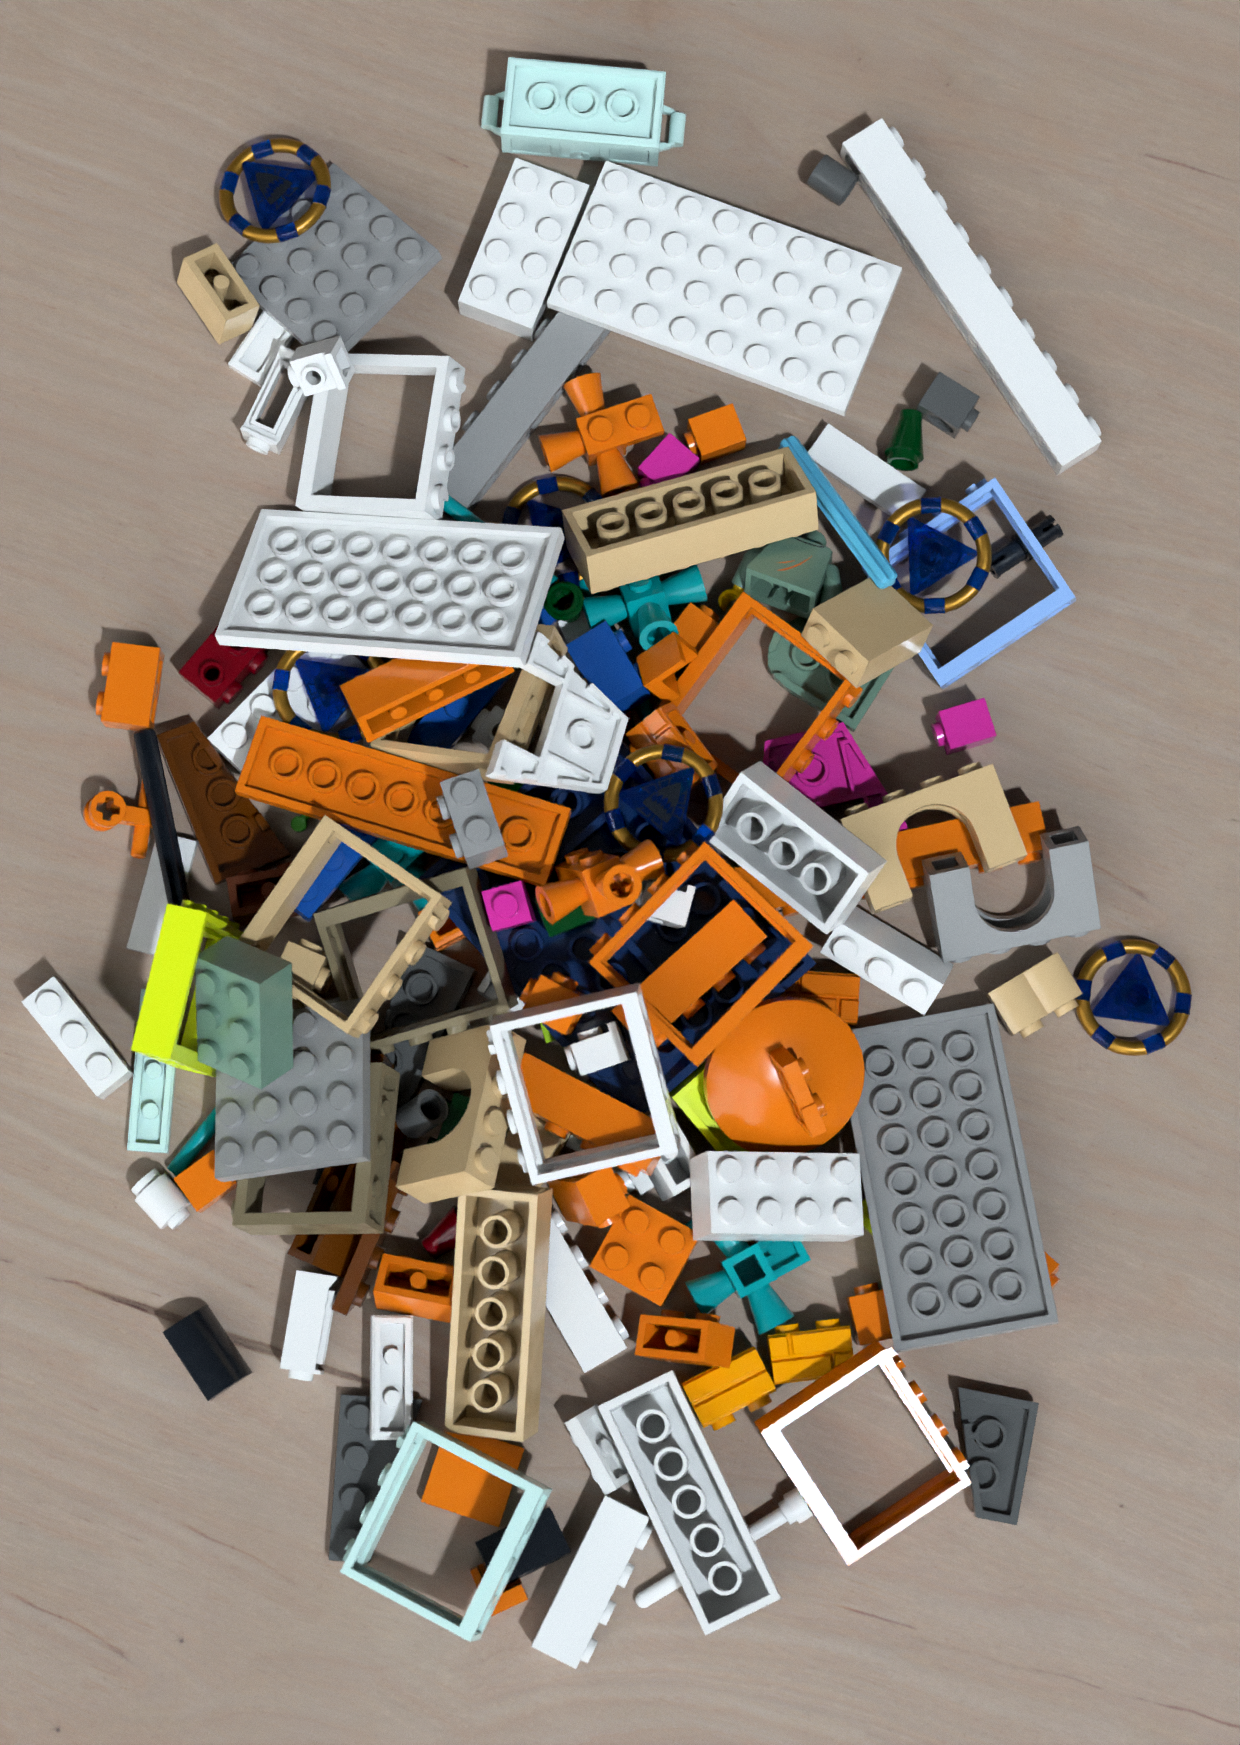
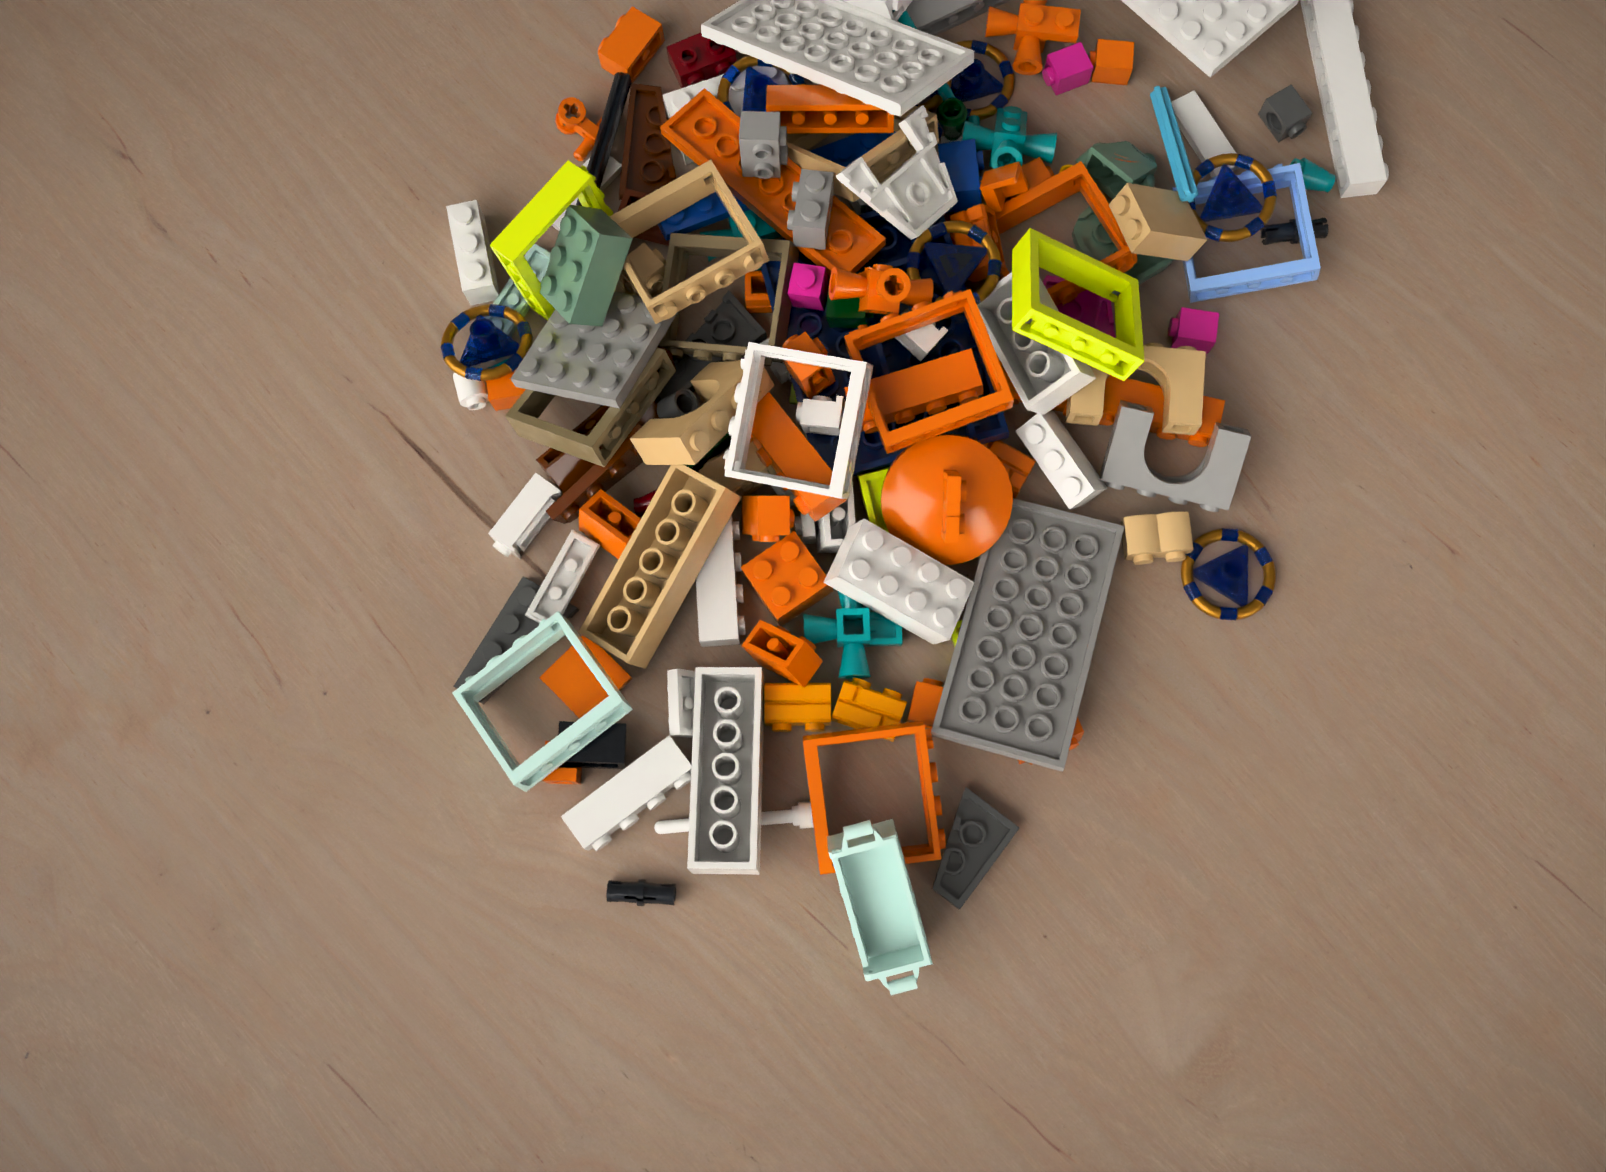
camera: 35 degrees right, 5 degrees down
(156, 1142) = (486, 342): none -> clear blue piece
(207, 1352) = (446, 502): black brick -> none
(378, 770) = (762, 144): none -> light grey brick
(659, 1682) = (641, 892): none -> black pin
(690, 520) = (1068, 100): tan brick -> none
(829, 842) = (1064, 332): none -> neon yellow window
(906, 442) = (1242, 127): dark green cone -> none
(930, 1565) = (880, 903): none -> light aqua container
(1011, 469) = (1315, 176): none -> teal cone

